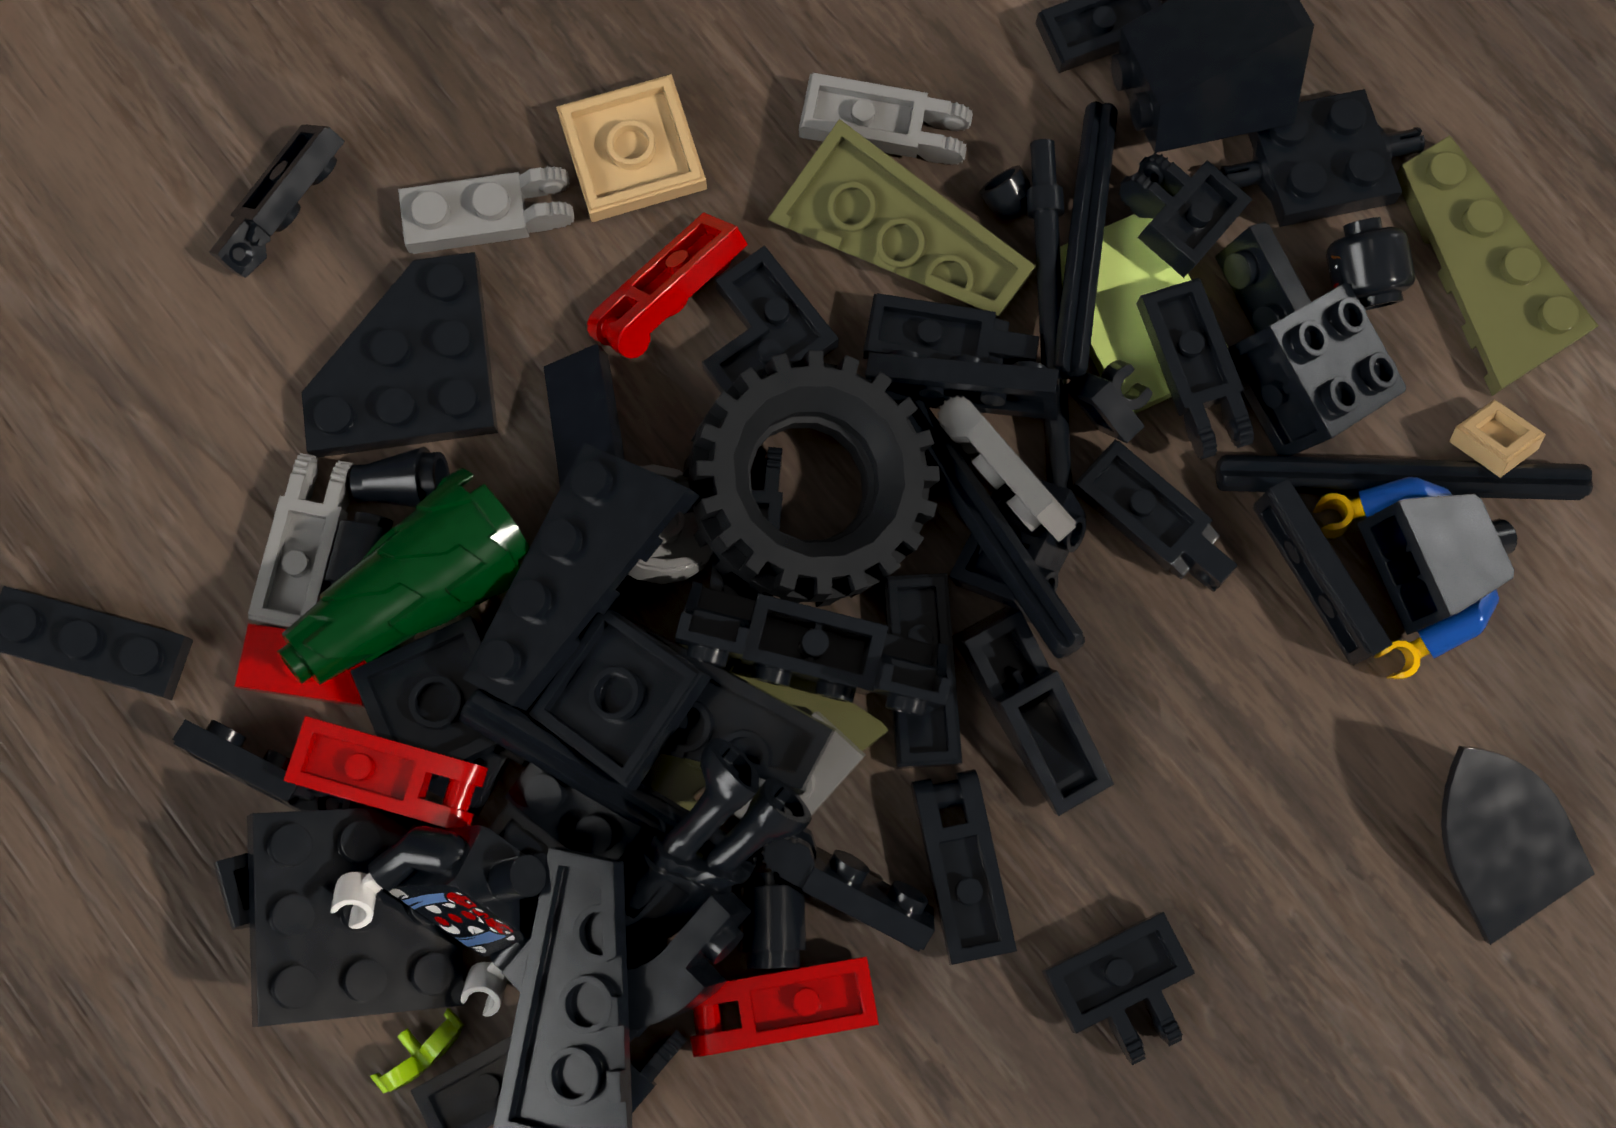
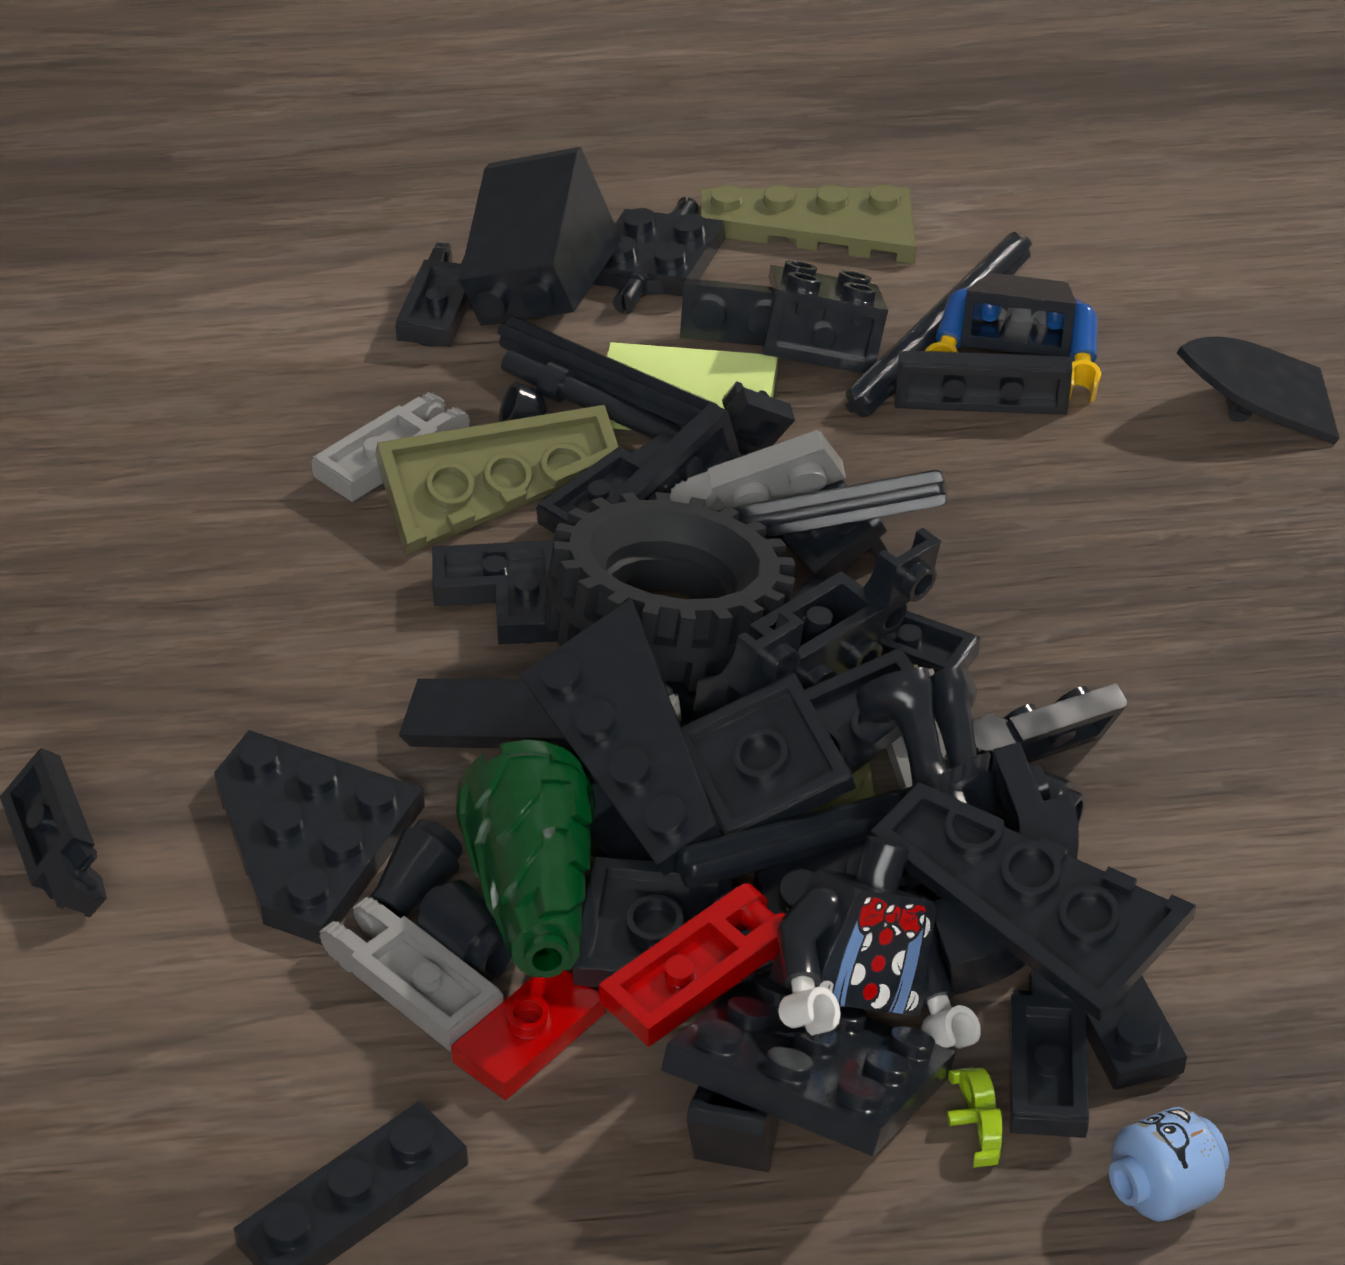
camera: 55 degrees left, 35 degrees down
(221, 749) = (596, 1105): black hinge -> none
(482, 209) = (210, 715): light grey hinge -> none
(631, 148) = (258, 594): tan plate -> none
(664, 285) = (405, 621): red plate -> none
(788, 1007) = (1121, 813): red plate -> none
(964, 869) = (1054, 665): black plate -> none
(1033, 709) = (982, 575): black slope -> none
(1119, 974) = (1237, 630): black hinge -> none
(1154, 516) = (883, 441): black hinge -> none
(1185, 210) = (640, 317): black hinge -> none
(1196, 363) = (767, 363): black hinge -> none
(1373, 262) = (757, 249): black head -> none
(1497, 438) = (952, 261): tan tile -> none

